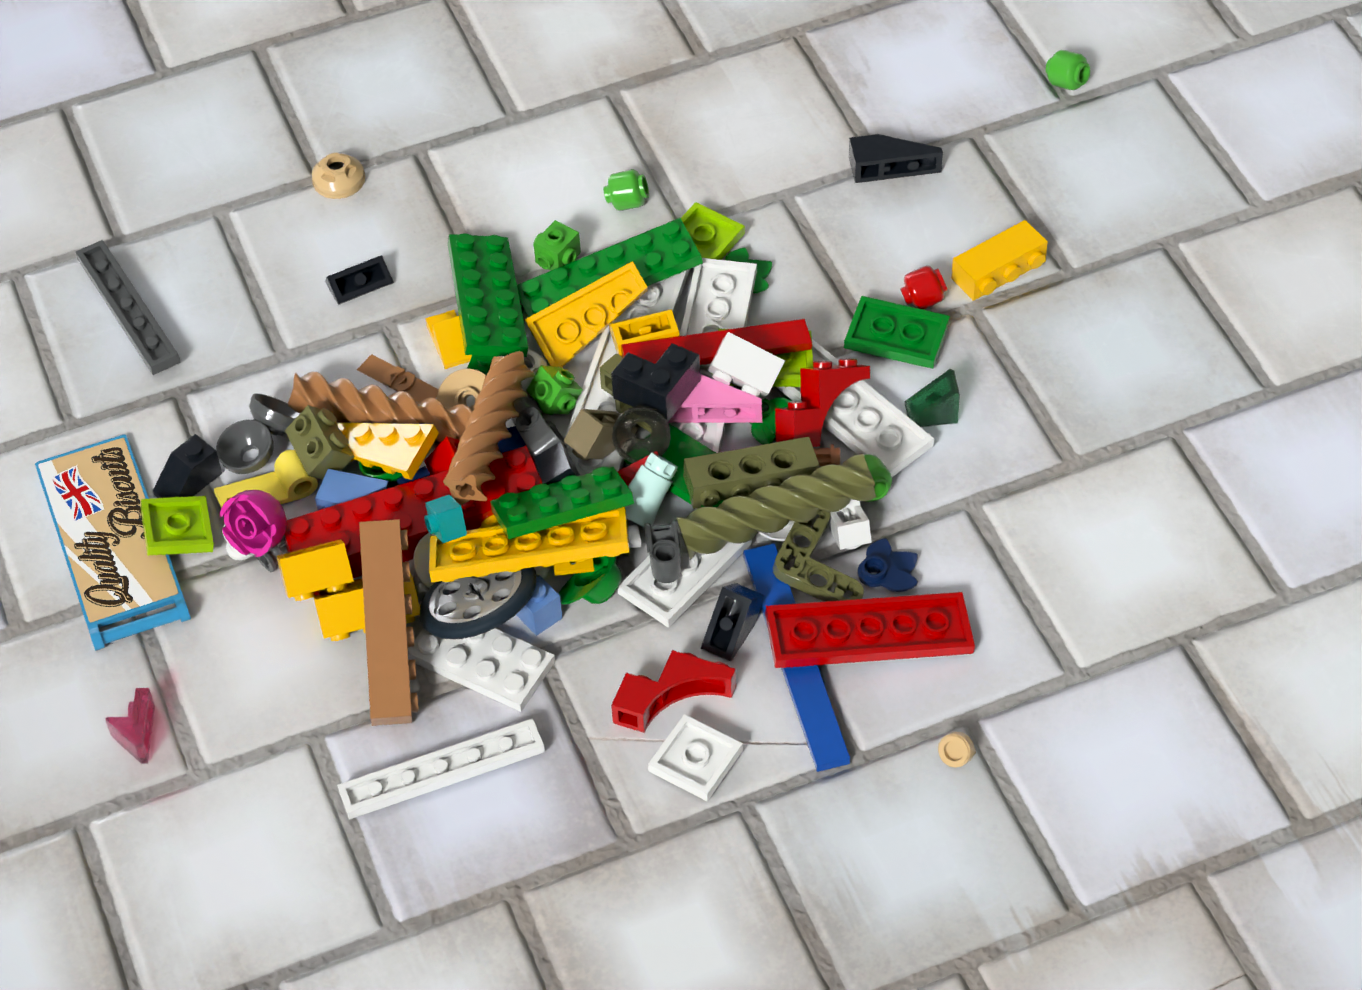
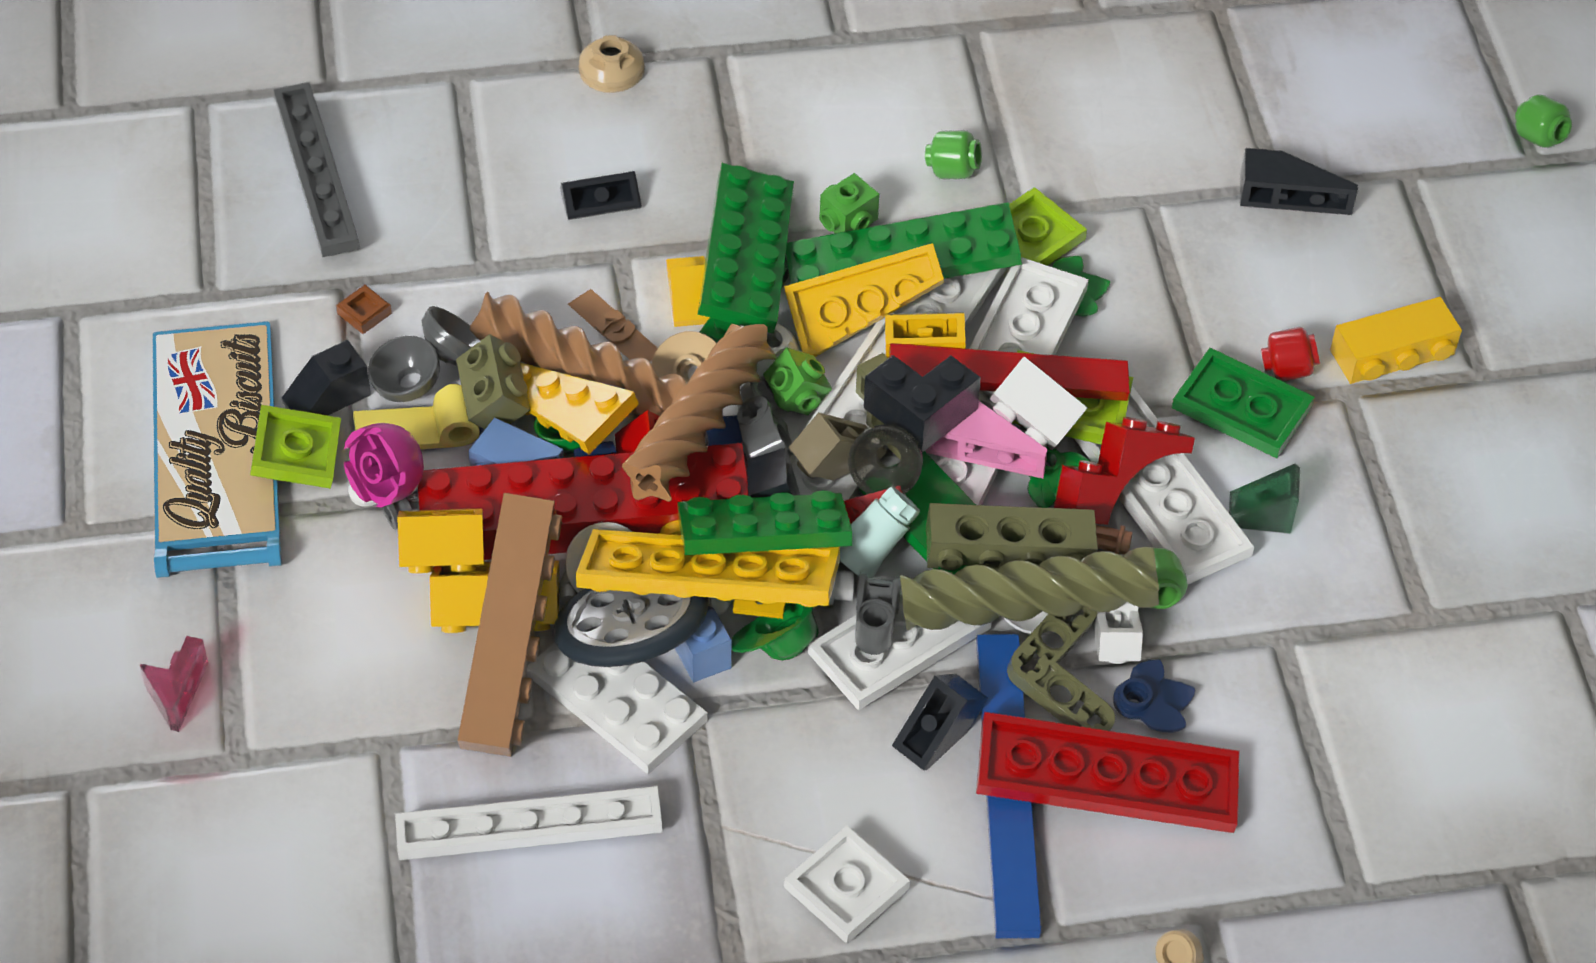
camera: 10 degrees right, 0 degrees up
(197, 408) = (363, 309): none -> dark orange tile
(445, 519) = (614, 512): teal plate -> none
(683, 677) = (858, 777): red arch -> none

